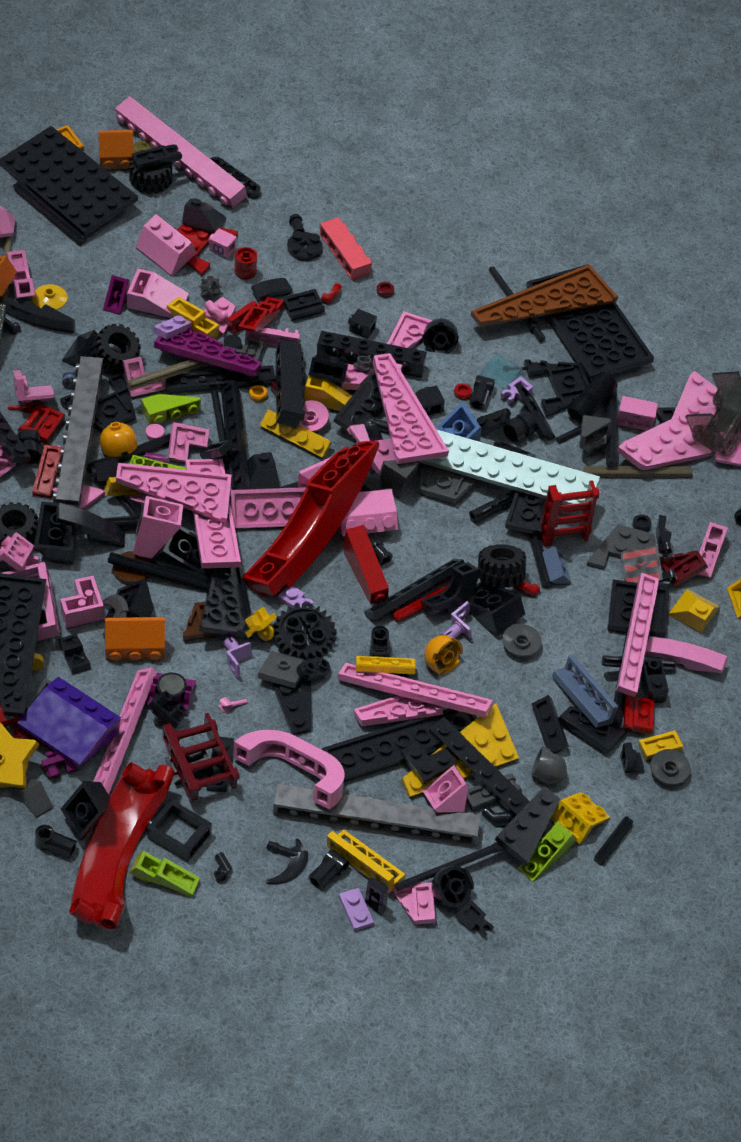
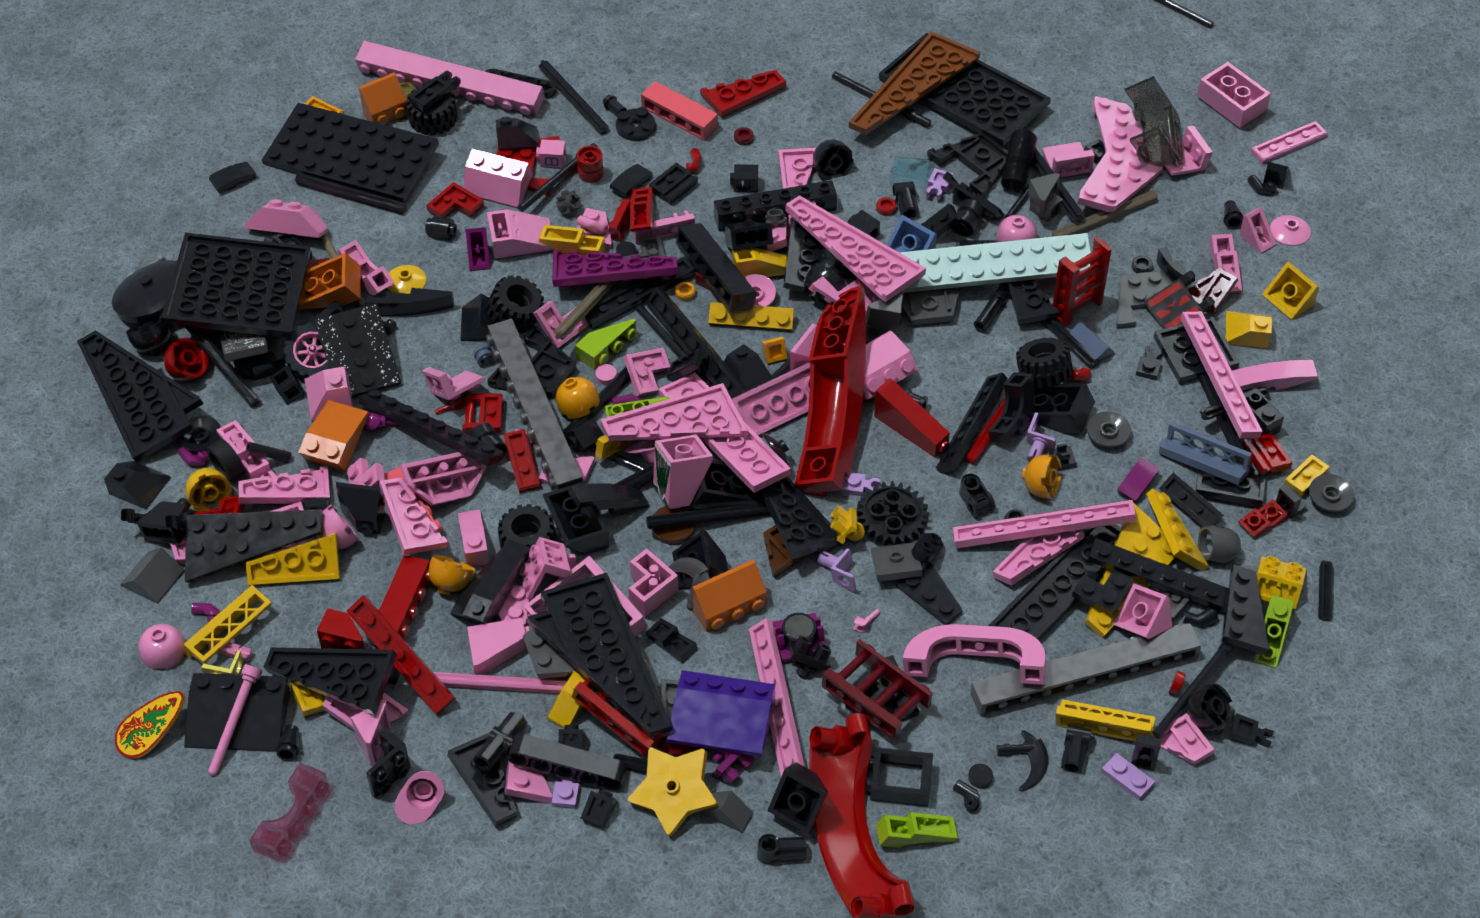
camera: 20 degrees left, 0 degrees up
(100, 267) = (441, 227): none -> black brick
(126, 248) = (455, 197): none -> red plate
(172, 327) = (558, 258): lavender plate -> none
(204, 266) = (549, 184): none -> black bar
(242, 857) = (980, 776): none -> black tile
(244, 544) = (778, 447): none -> black dish
(269, 205) = (569, 92): none -> black axle
(295, 465) = (774, 350): none -> light orange tile
(385, 665) = (996, 512): yellow tile -> none
(399, 254) = (731, 97): none -> red wing
(442, 856) = (1177, 682): none -> red tile
(471, 646) = (1065, 455): none -> black tile
(519, 688) = (1138, 479): none -> magenta slope
(519, 742) = (1175, 532): none -> yellow wing
(554, 452) = (1016, 228): none -> bright pink cylinder
(592, 605) = (1149, 364): none -> black plate
(594, 764) = (1264, 519): none -> red slope

